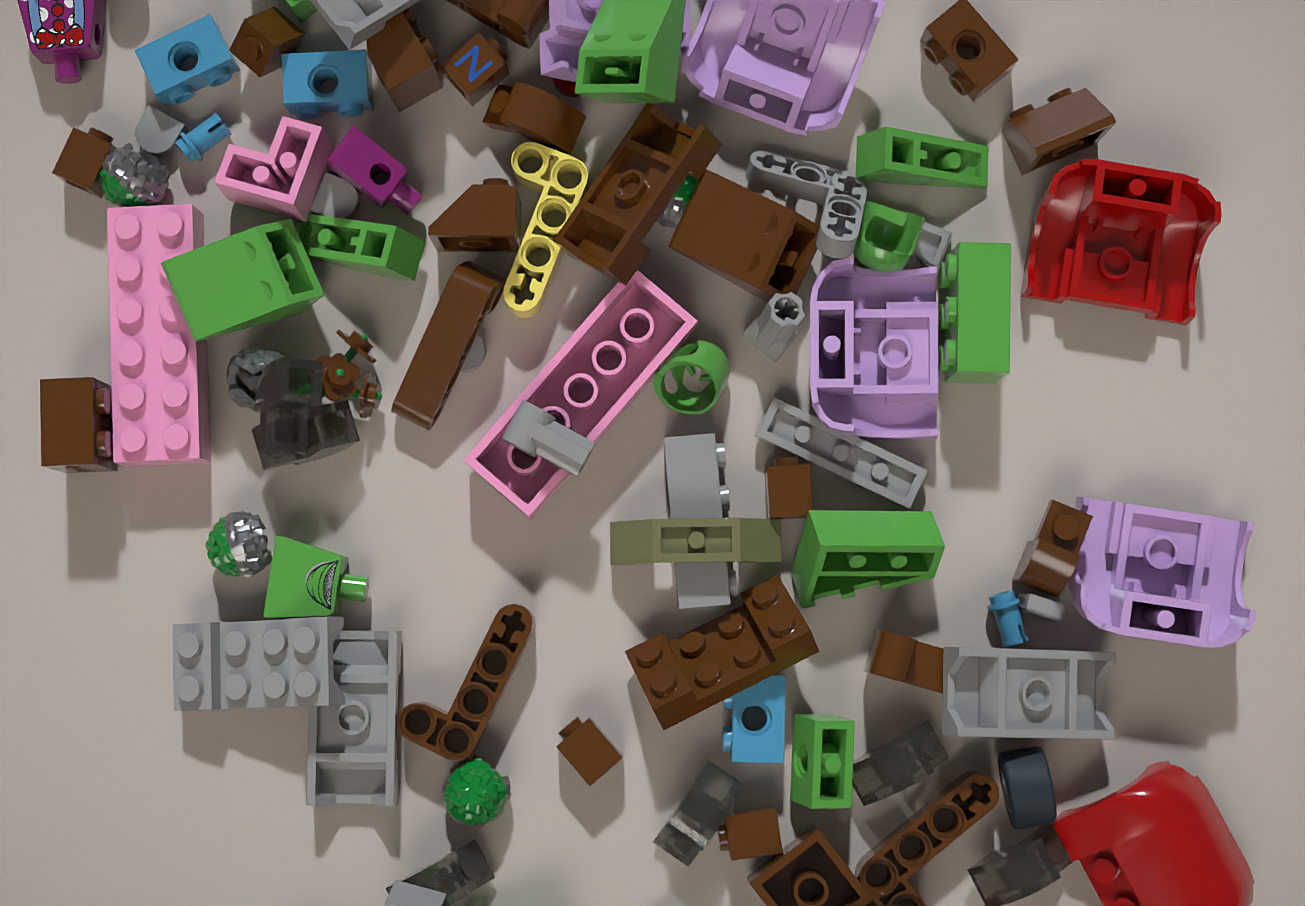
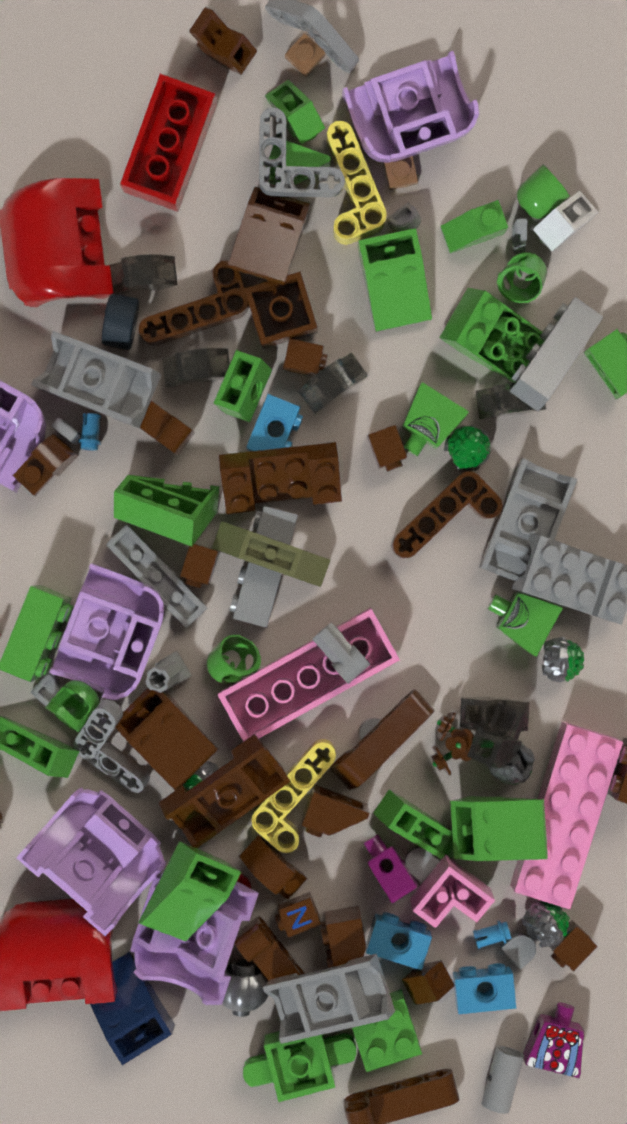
camera: 160 degrees left, 5 degrees up
(542, 813) = (430, 419): none -> bright green torso

